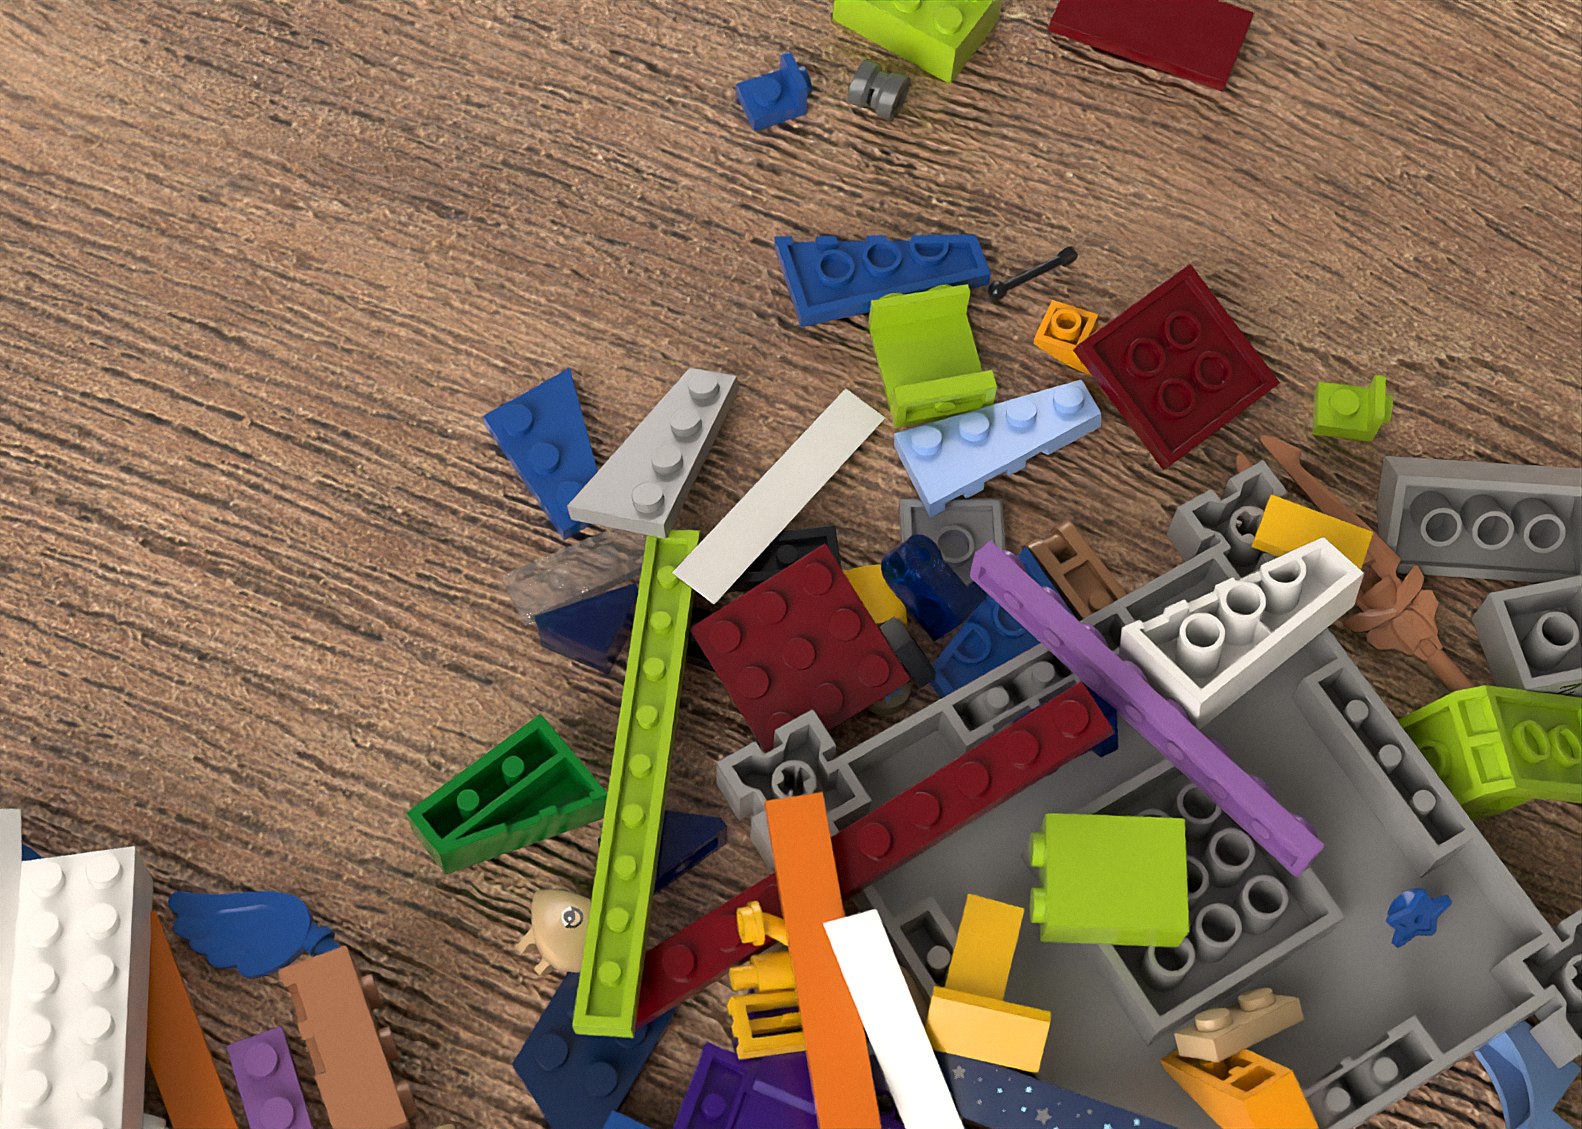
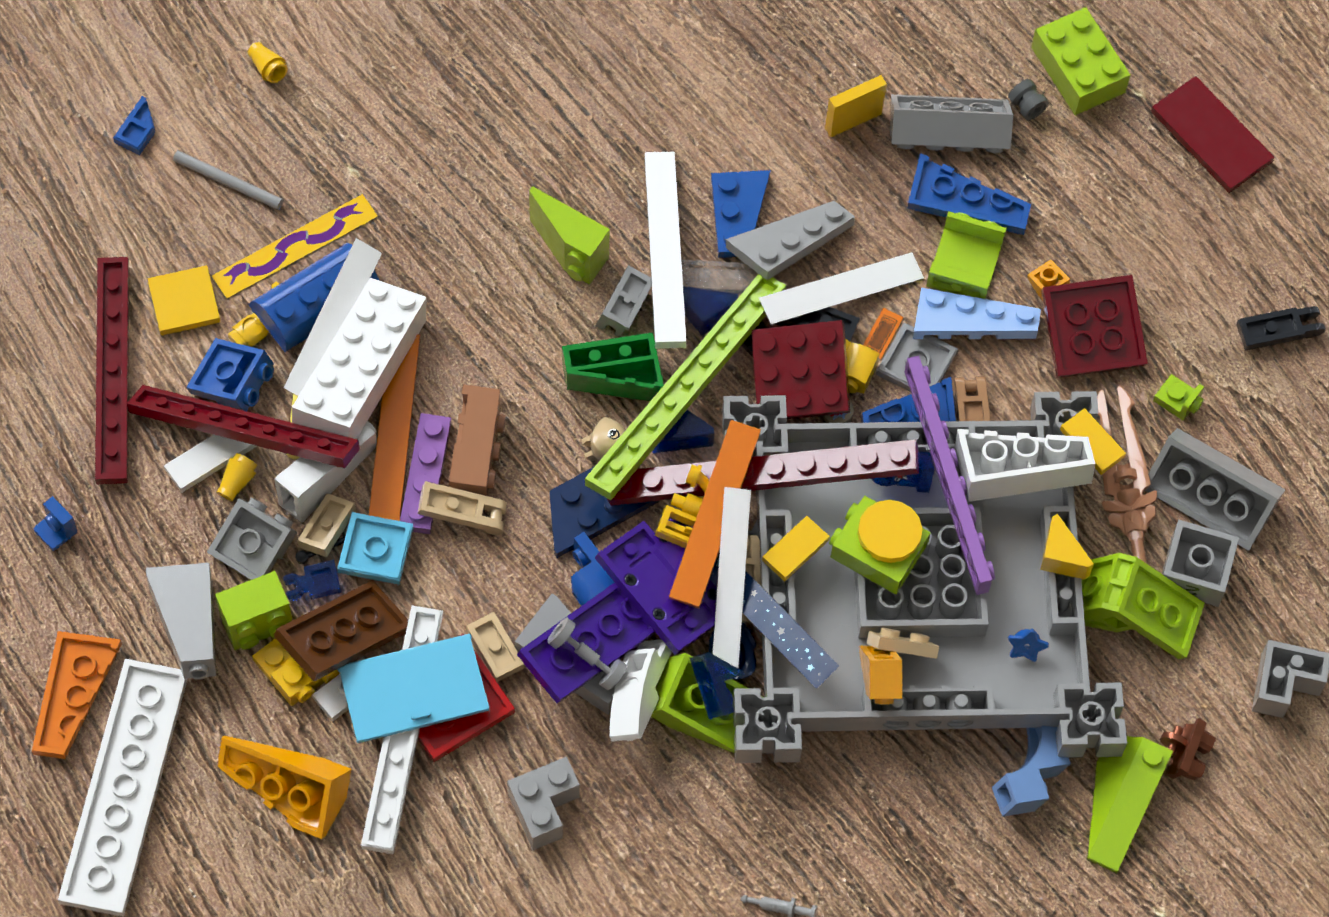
camera: 30 degrees right, 0 degrees up
(249, 930) = (457, 364): blue animal -> none
(323, 623) = (571, 236): none -> lime slope
(462, 682) = (625, 301): none -> light grey hinge
(486, 575) = (665, 250): none -> white tile
(644, 211) = (855, 106): none -> yellow tile
(775, 95) = (970, 75): blue bracket -> none
(791, 173) = (950, 123): none -> light grey slope
(873, 526) = (883, 331): none -> sticker
(908, 651) = (856, 397): black tile -> none
(929, 586) = (886, 370): clear blue leg -> none
(987, 1029) = (776, 578): yellow tile -> none
(997, 290) = (1076, 241): black hinge -> none
(1126, 853) = (890, 531): none -> yellow tile
(1385, 736) = (1064, 553): none -> yellow slope
(1413, 244) = (1278, 327): none -> black hinge

